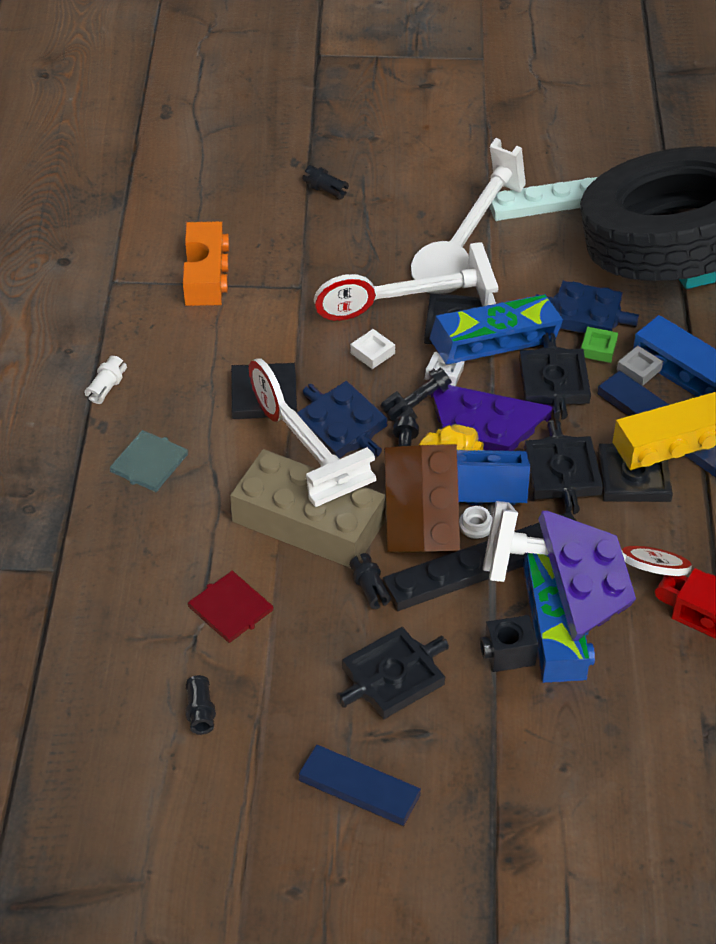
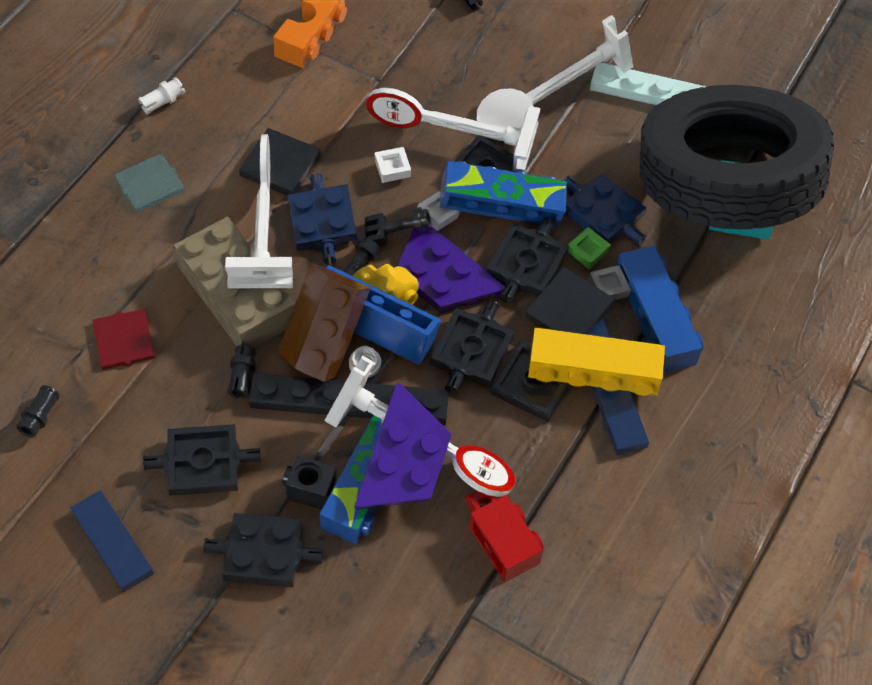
camera: 25 degrees right, 10 degrees up
(508, 723) = (263, 550): none -> black plate
(621, 393) = (570, 305): none -> black tile

